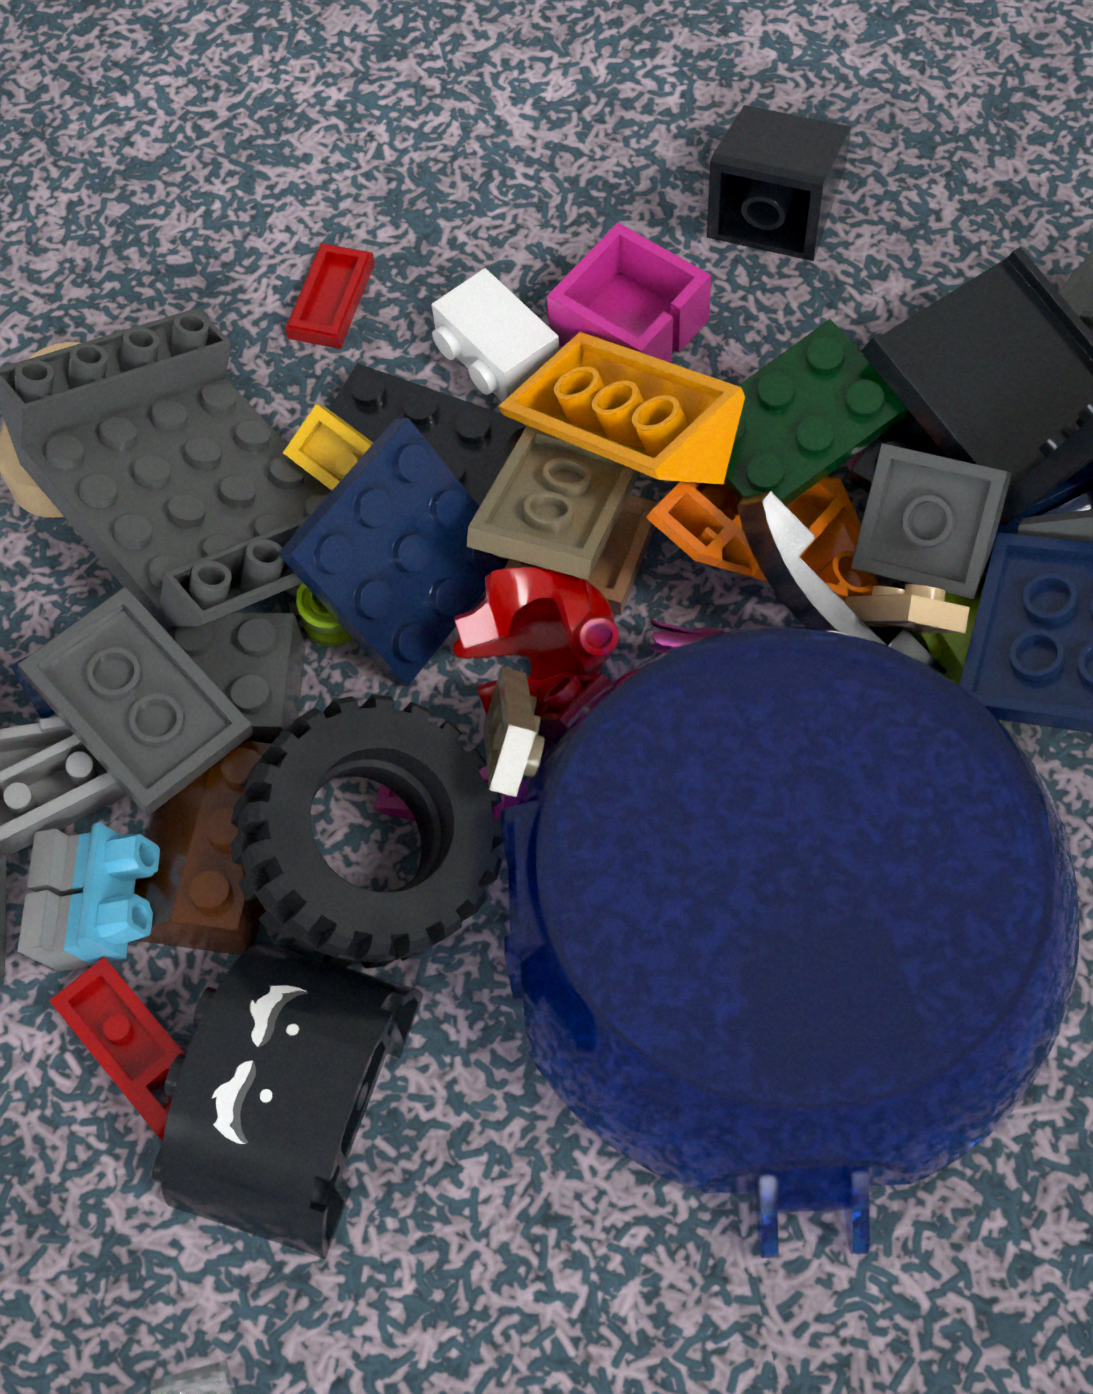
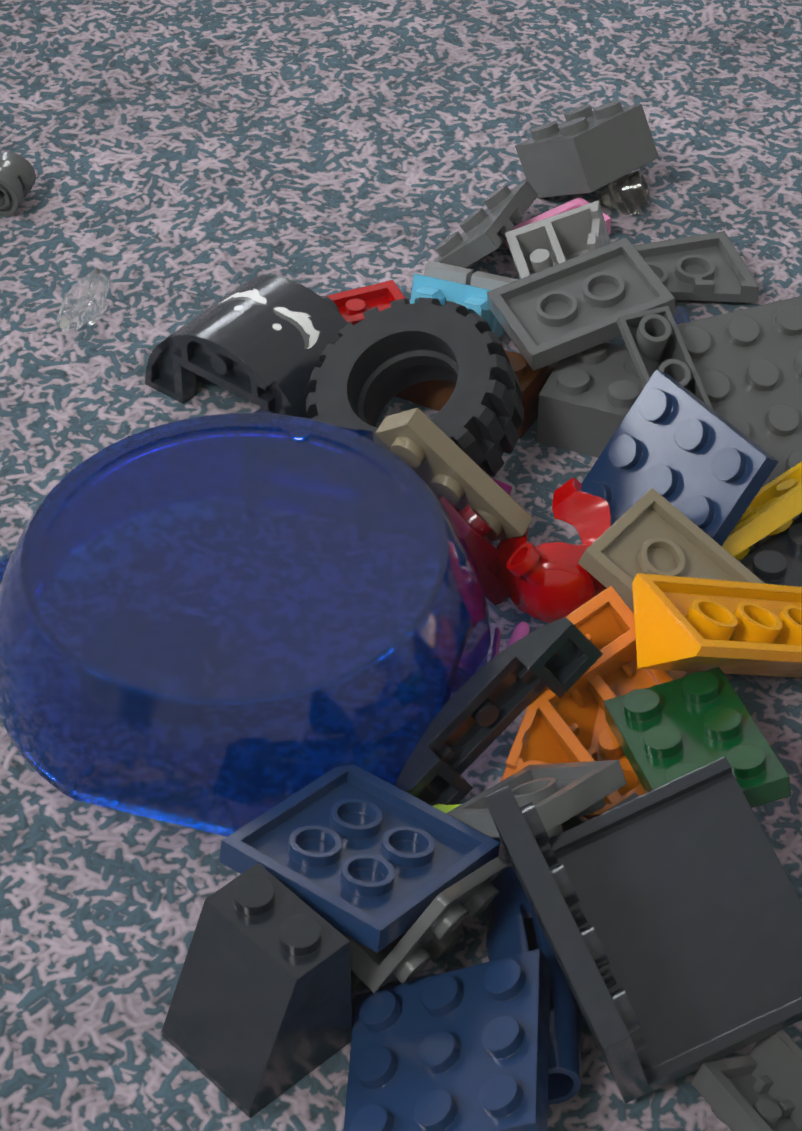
camera: 105 degrees right, 20 degrees down
(915, 608) = (448, 757): tan plate -> none

